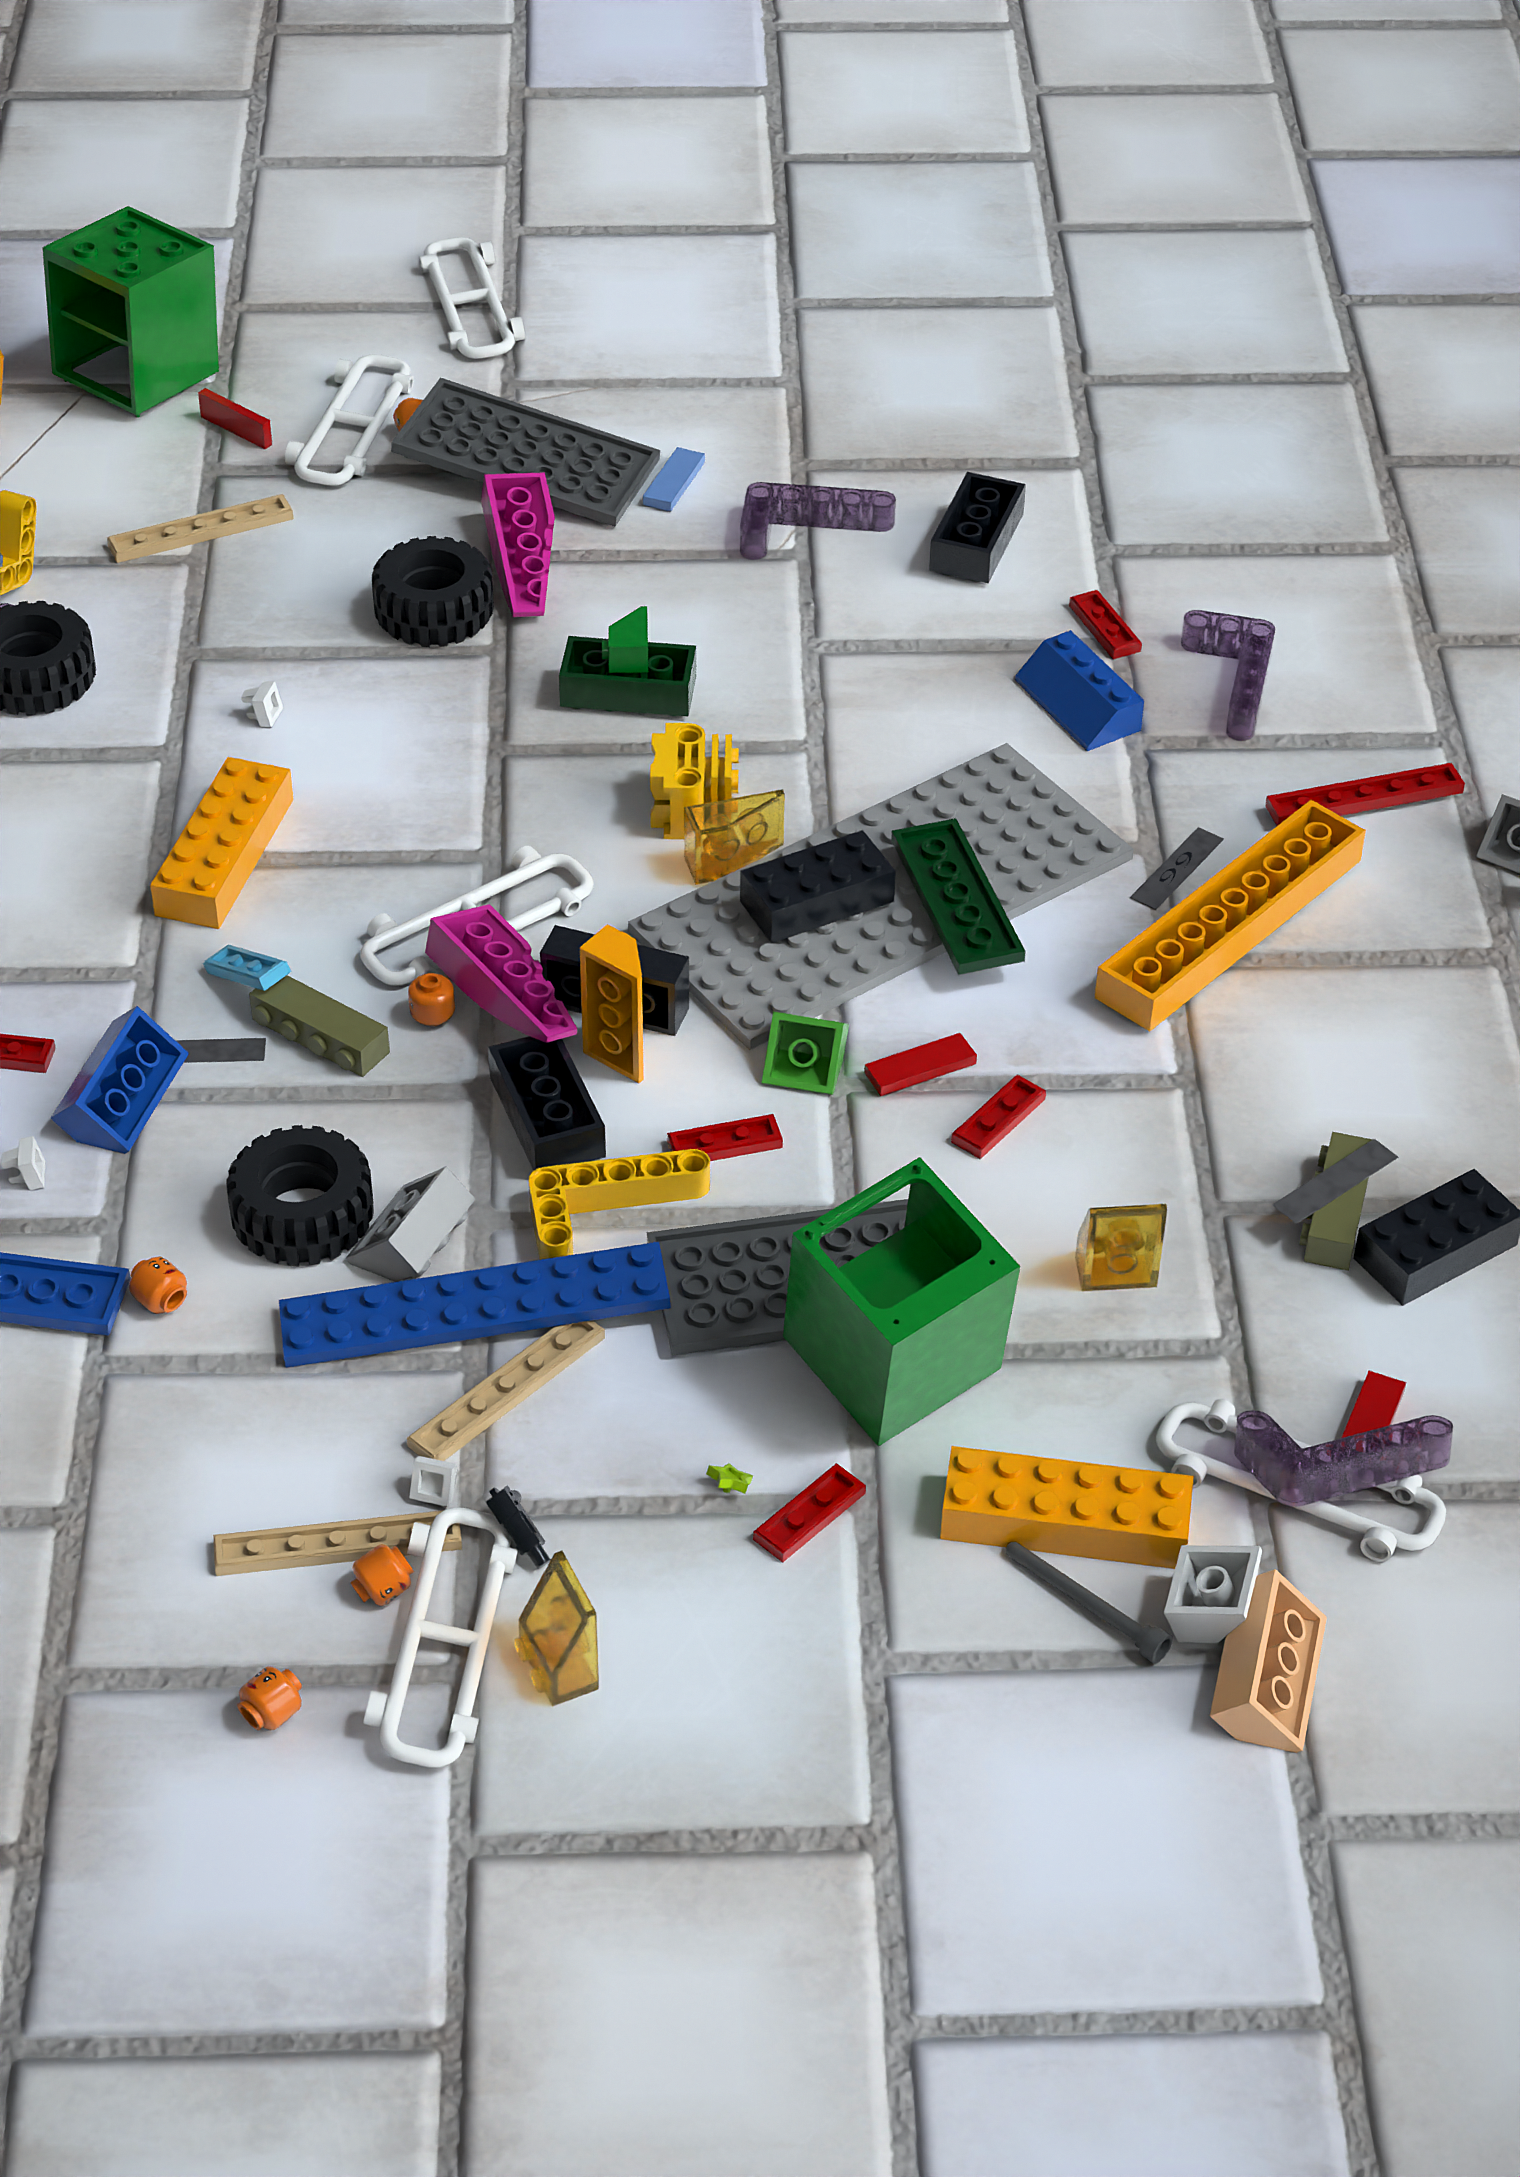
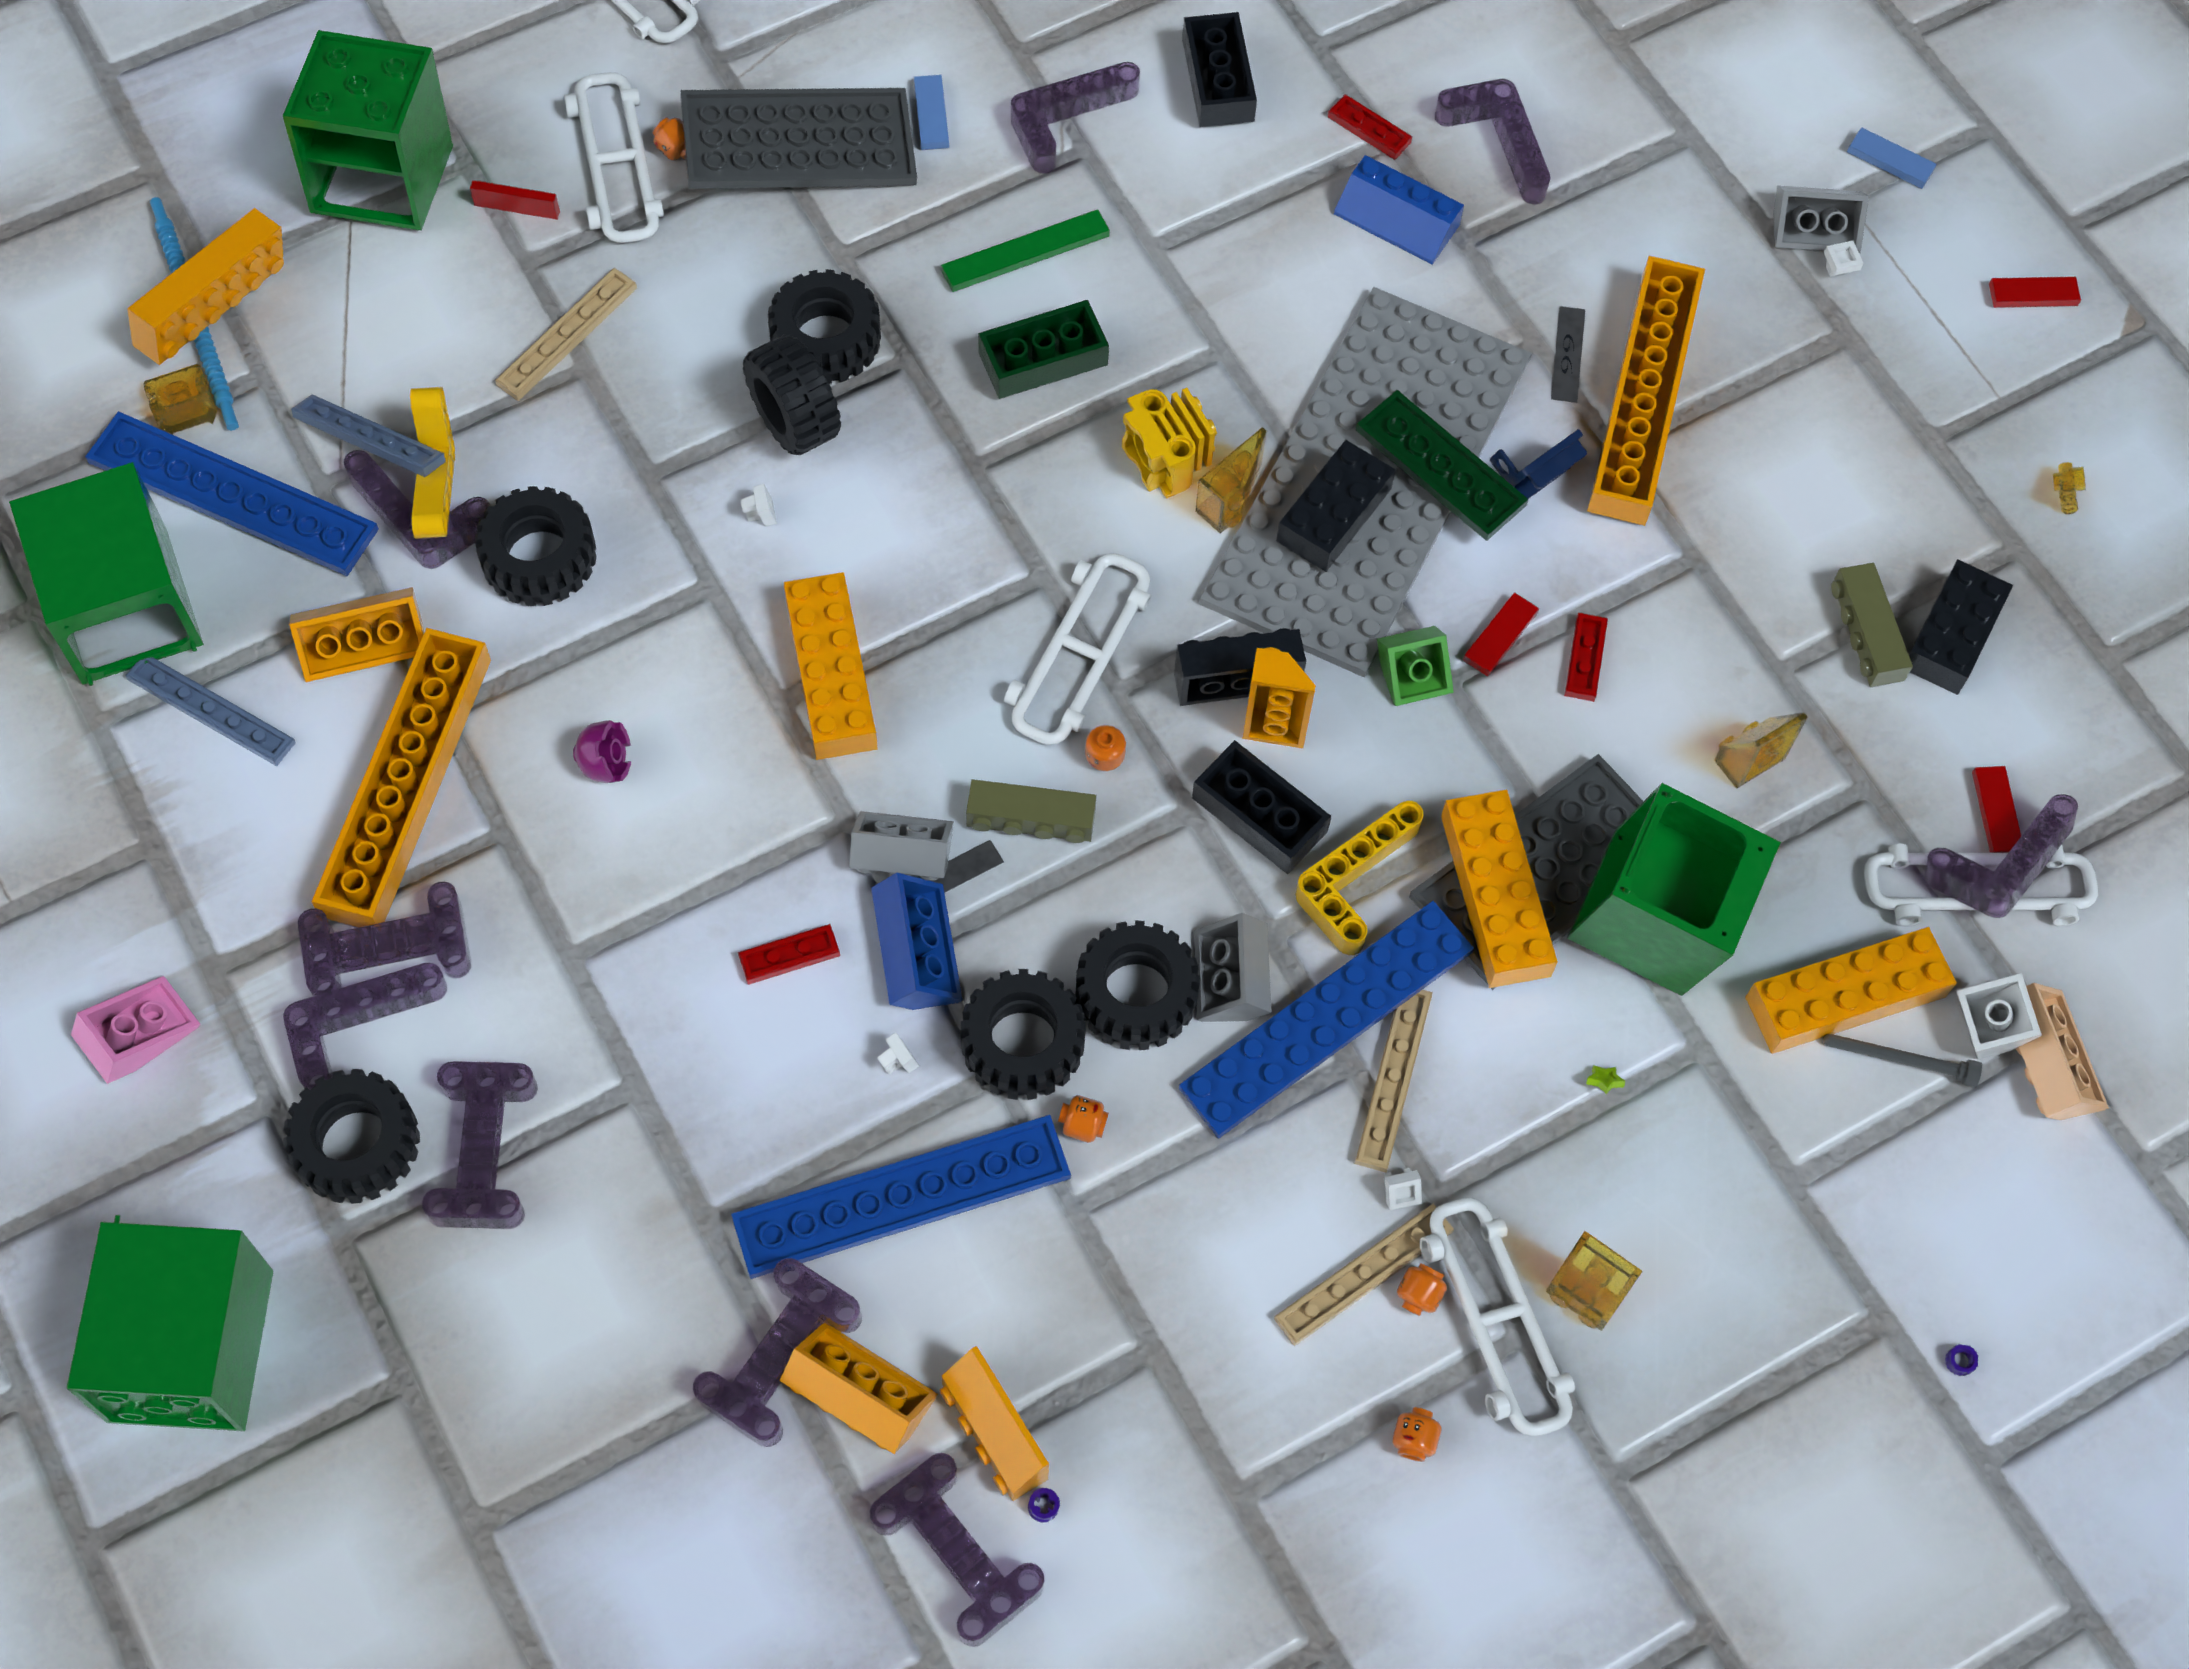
camera: 30 degrees left, 20 degrees up
(162, 1222) = (1022, 995): none -> black tyre
(171, 1002) = (900, 845): none -> light grey slope
(246, 967) = (942, 785): medium azure tile -> none
(347, 615) = (792, 394): none -> black tyre
(498, 971) = (1149, 704): dark pink wedge -> none
(509, 1512) = (1488, 1196): black piece -> none
(520, 537) = (855, 236): dark pink wedge -> none
(628, 643) = (1043, 325): green slope -> none
(680, 605) = (1025, 250): none -> green tile
(730, 1138) = (1403, 774): red tile -> none
(733, 1257) = (1498, 889): none -> light orange brick
(809, 1512) = (1674, 1078): red tile -> none
(941, 1899) = (1972, 1357): none -> dark purple axle
(1065, 934) = (1543, 469): none -> dark blue piece
(1335, 1181) = (1868, 614): flat silver sticker -> none
(1371, 792) = (1666, 223): red plate -> none

